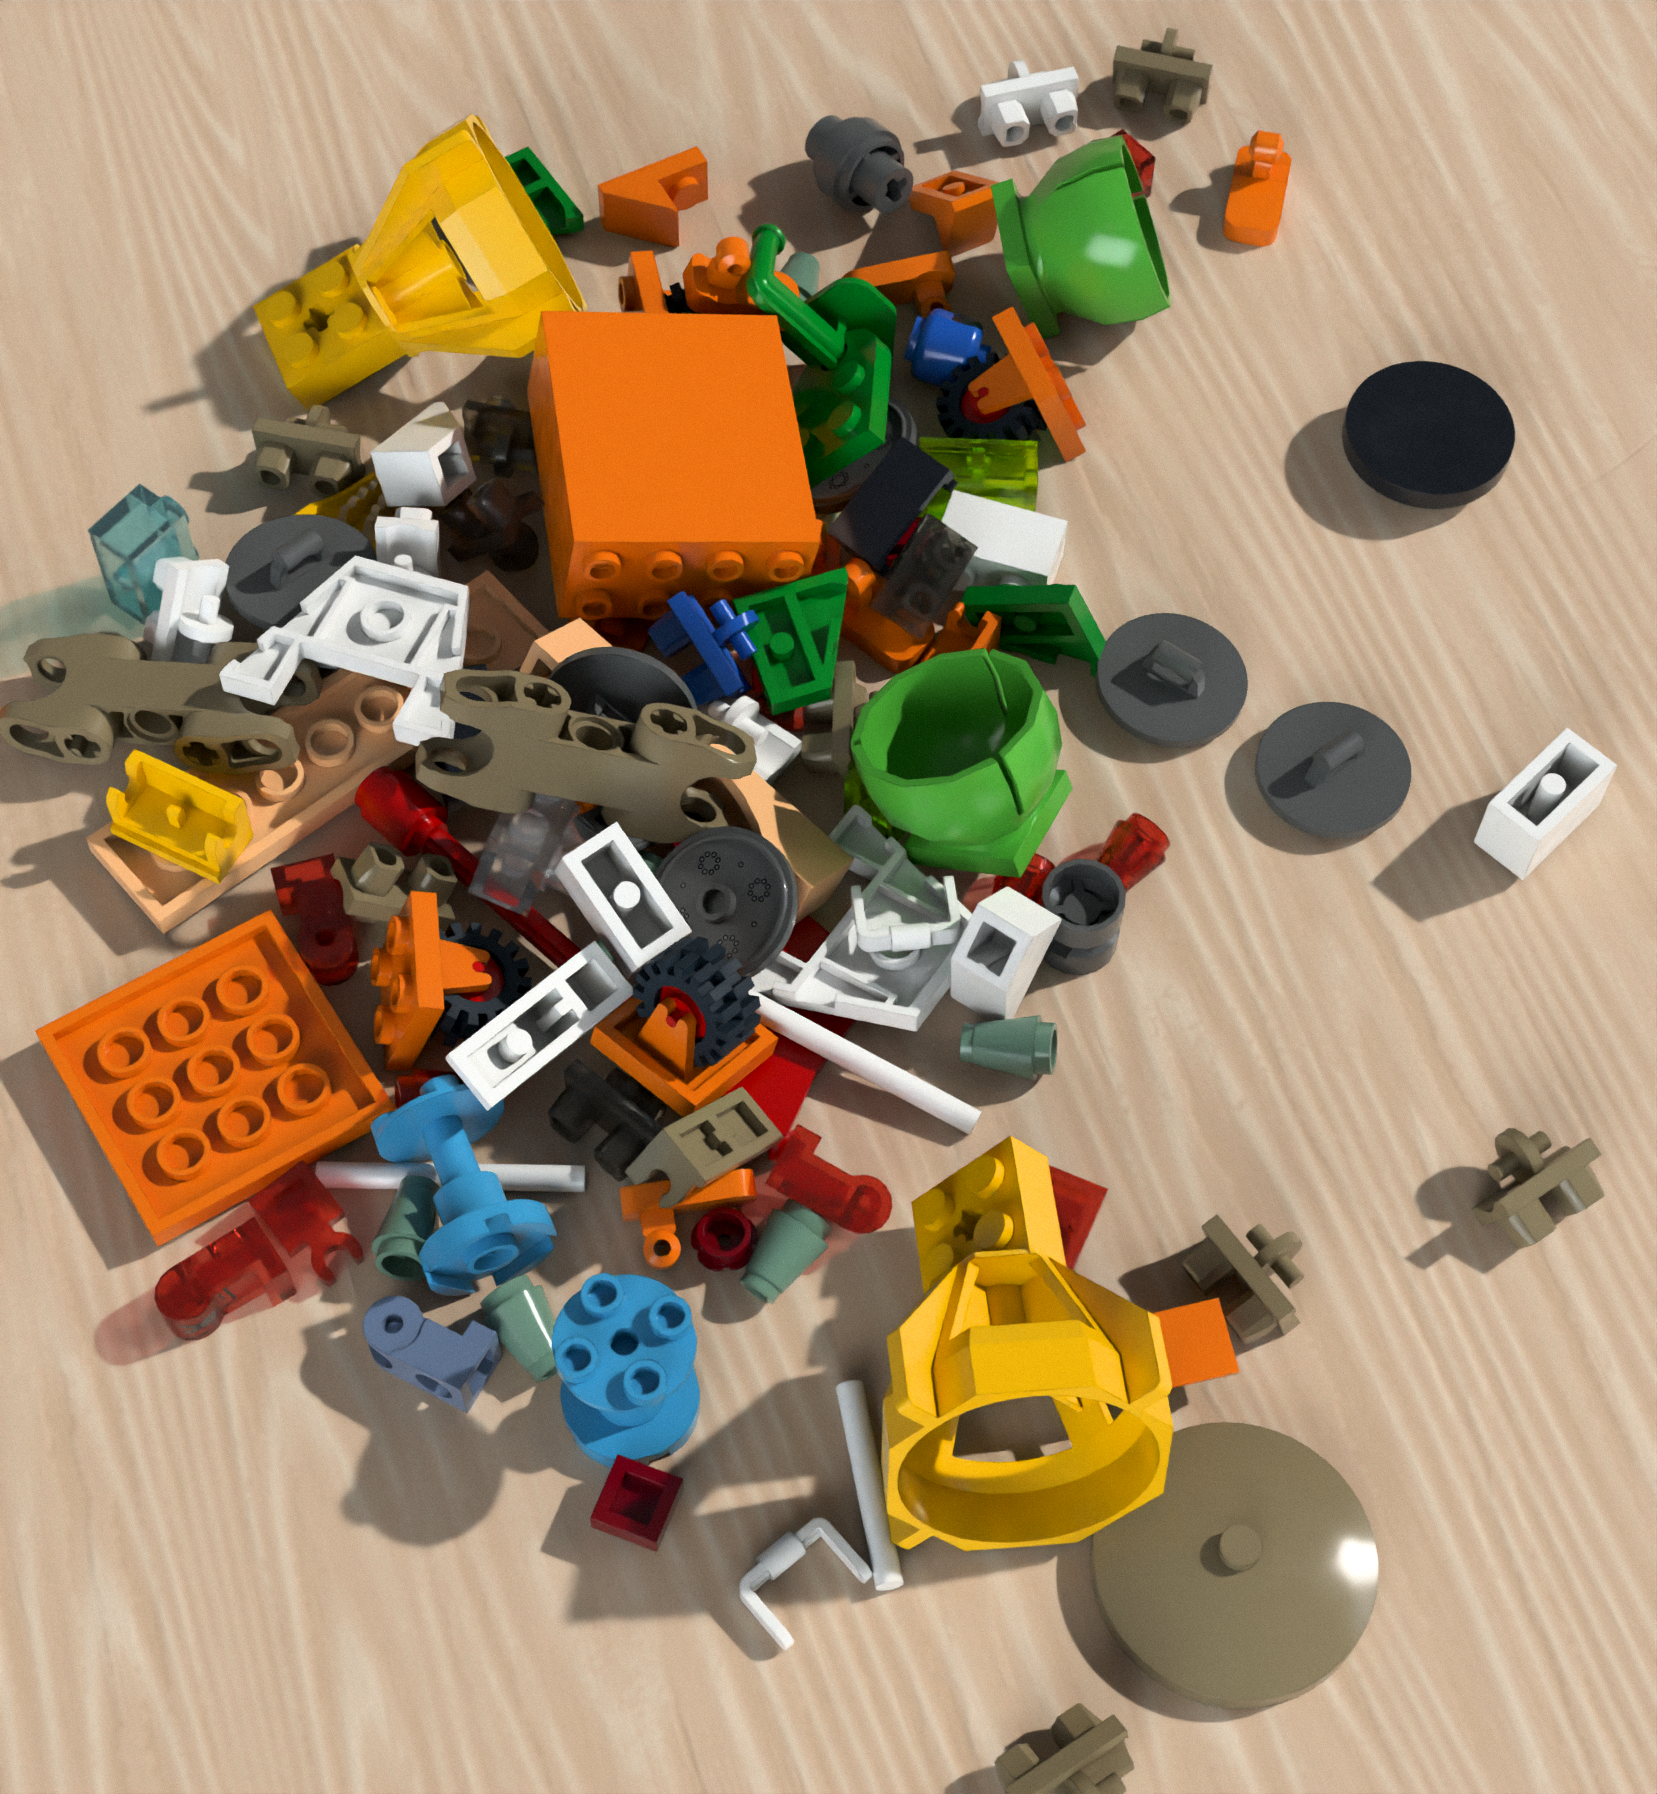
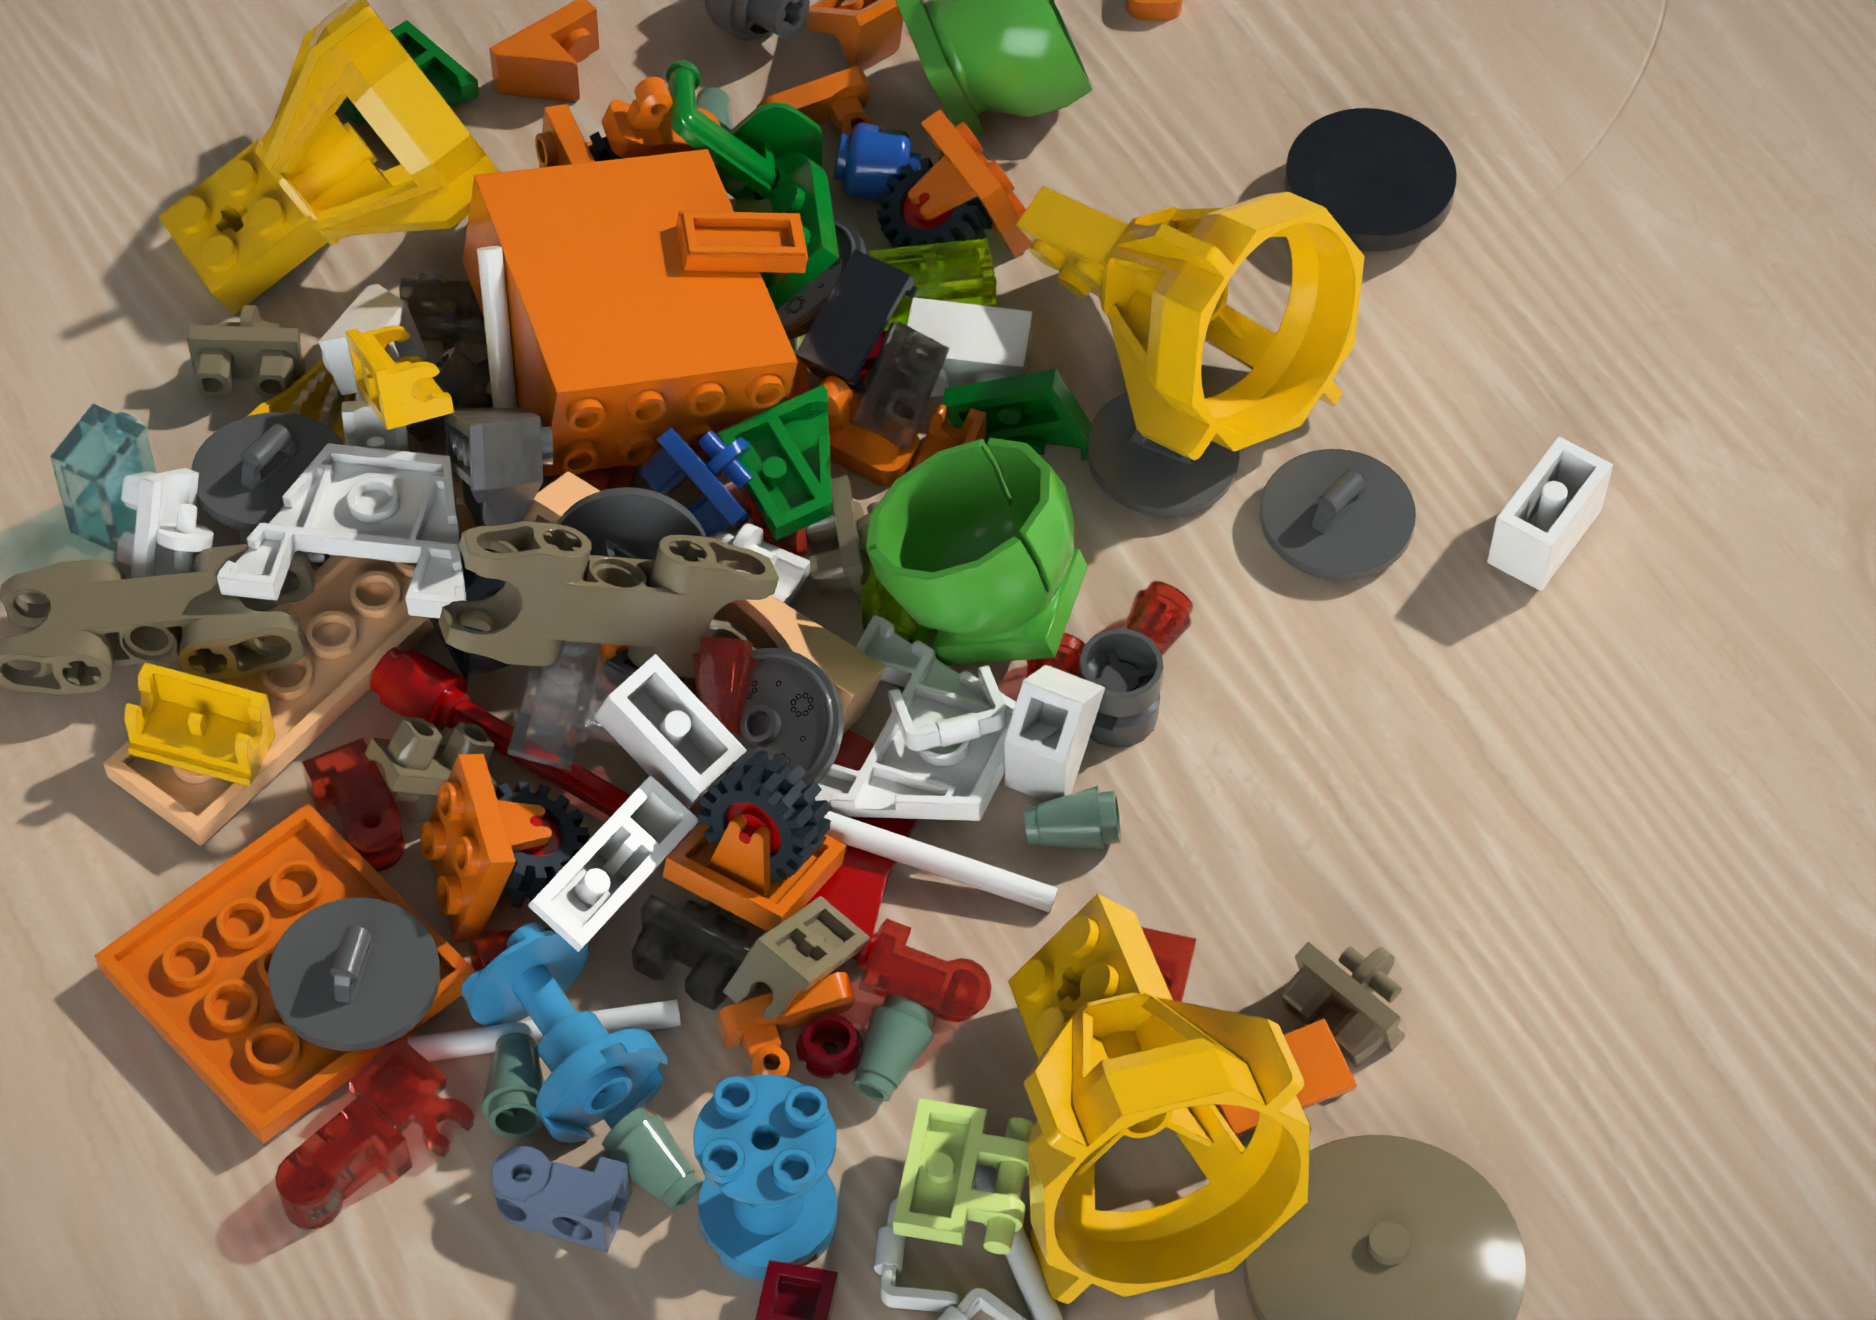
camera: 10 degrees left, 5 degrees down
(274, 1092) = (354, 974): none -> dark grey shield
(431, 512) = (398, 389): none -> yellow hinge
(510, 599) = (497, 460): none -> flat silver wedge
(537, 500) = (497, 327): none -> white bar
(685, 854) = (724, 677): none -> clear red cone
(743, 1462) = (889, 1265): none -> white piece
(789, 413) = (741, 242): none -> orange tile
(804, 1396) = (942, 1171): none -> yellowish green plate
(1204, 516) = (1168, 294): none -> yellow plate
(1517, 1203) = (1593, 892): dark tan hips -> none

